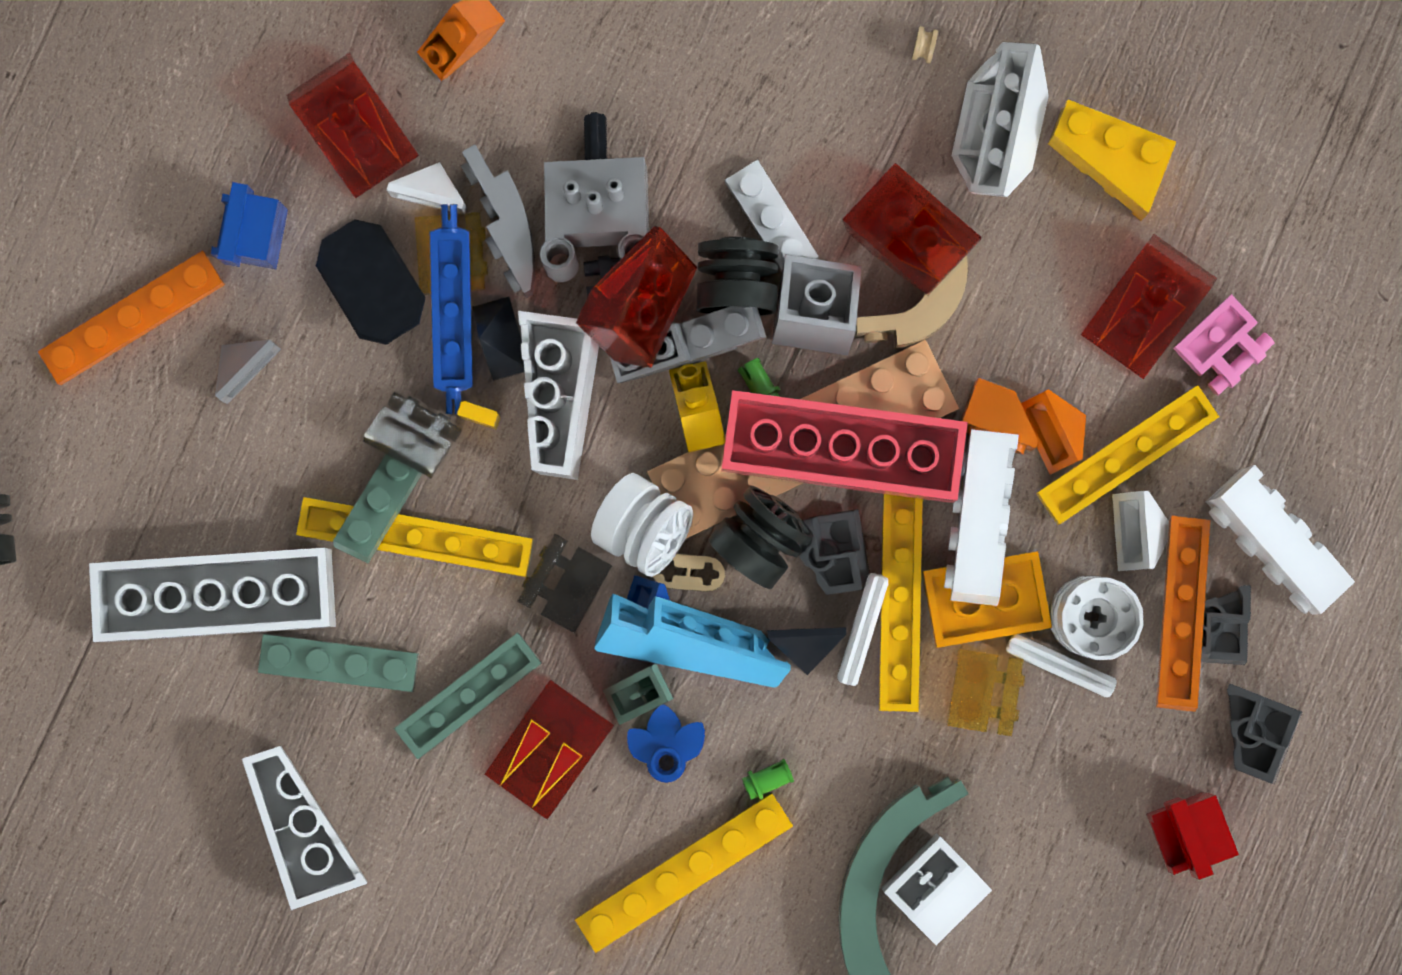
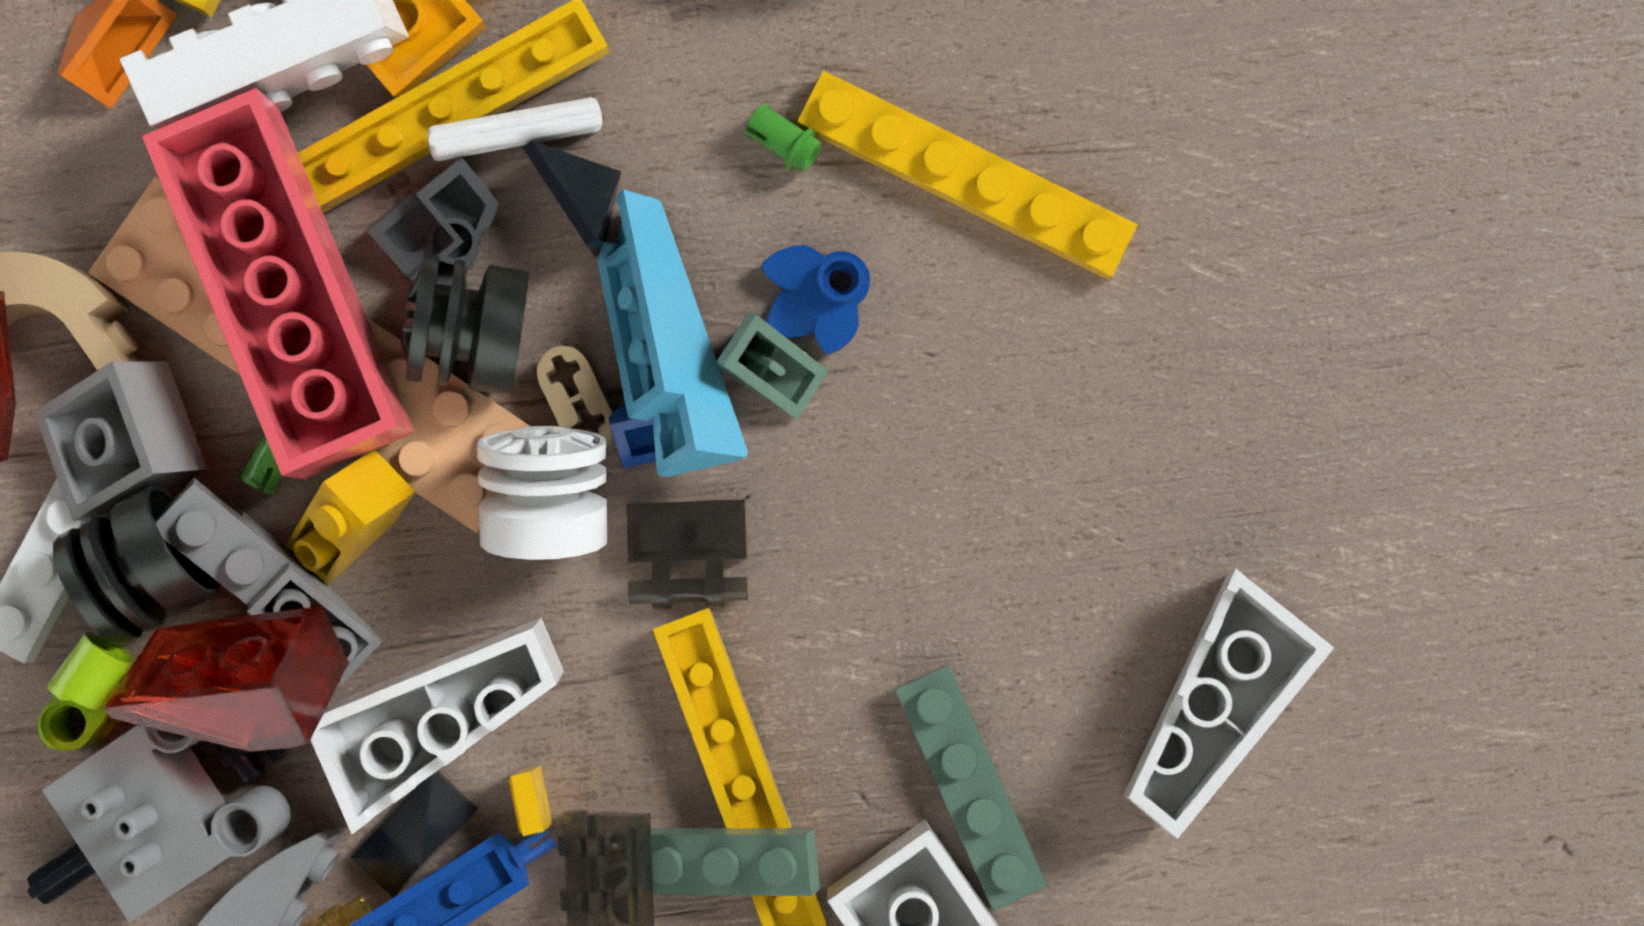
camera: 120 degrees left, 0 degrees up
(468, 695) = (910, 588): sand green plate -> none
(549, 748) = (913, 439): clear red slope -> none
(685, 216) = (86, 683): none -> lime piece
(998, 410) = (116, 123): orange slope -> none

